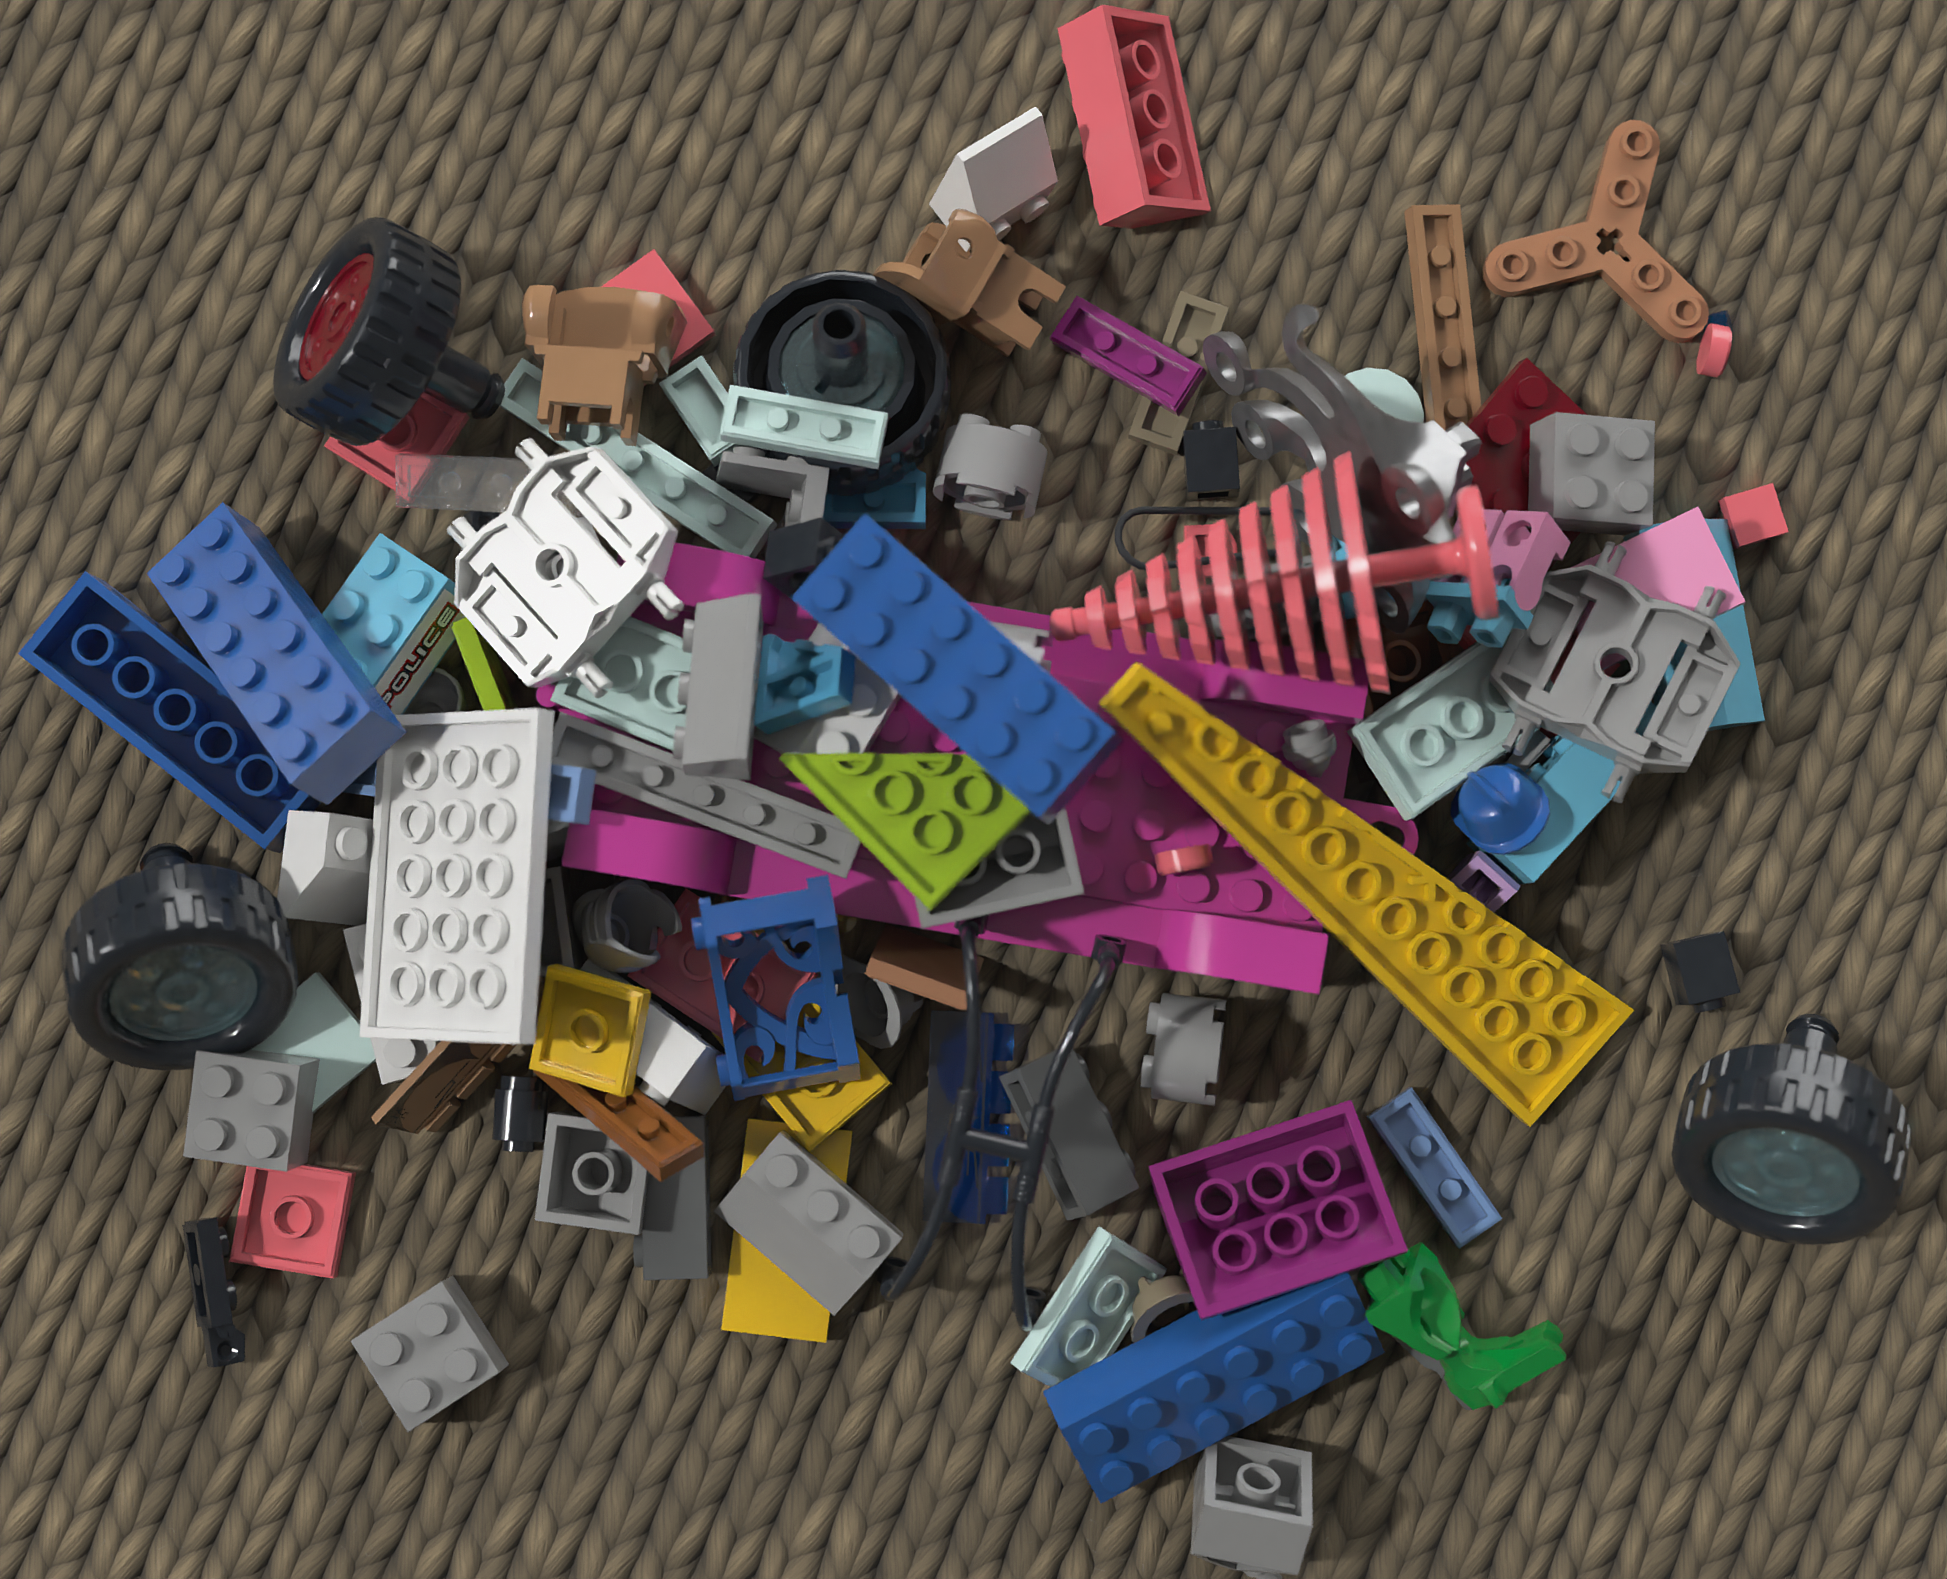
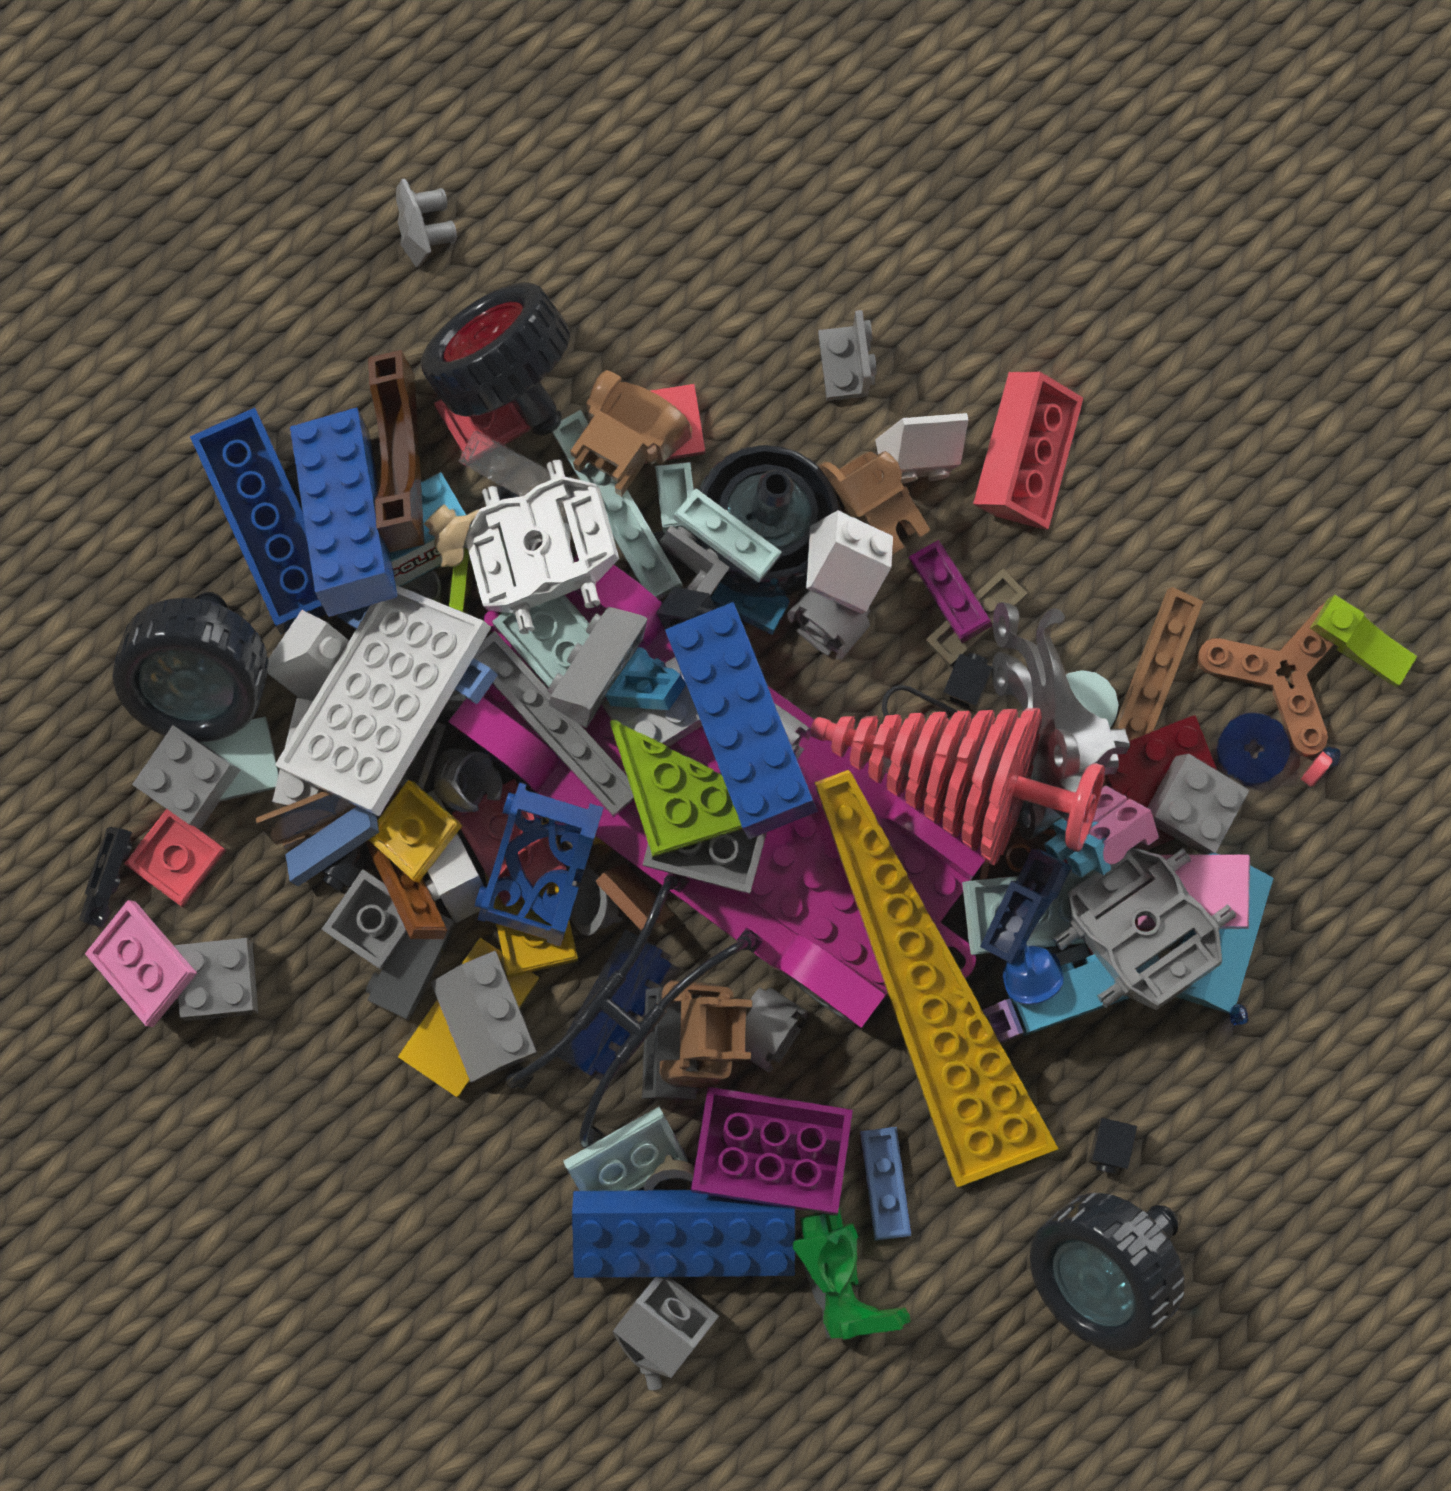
camera: 30 degrees right, 5 degrees down
(184, 234) = (415, 235): none -> light grey connector
(319, 1385) = (140, 963): none -> bright pink tile
(338, 589) = (400, 494): none -> reddish brown arch
(433, 611) = (449, 533): none -> tan animal
(488, 1103) = (330, 844): none -> medium blue tile
(838, 115) = (846, 361): none -> light grey bracket
(981, 380) = (848, 560): none -> white slope
(1120, 1098) = (709, 1033): none -> medium nougat piece
(1184, 859) = (823, 907): coral tile -> none
(1309, 746) = (933, 878): light grey plate -> none
(1448, 721) = (1025, 904): none -> dark blue slope
(1629, 337) = (1268, 734): none -> clear blue plate
(1688, 153) = (1363, 641): none -> lime slope
(1753, 516) = (1291, 884): coral tile -> none
(1772, 718) = (1238, 1015): none -> clear blue piece

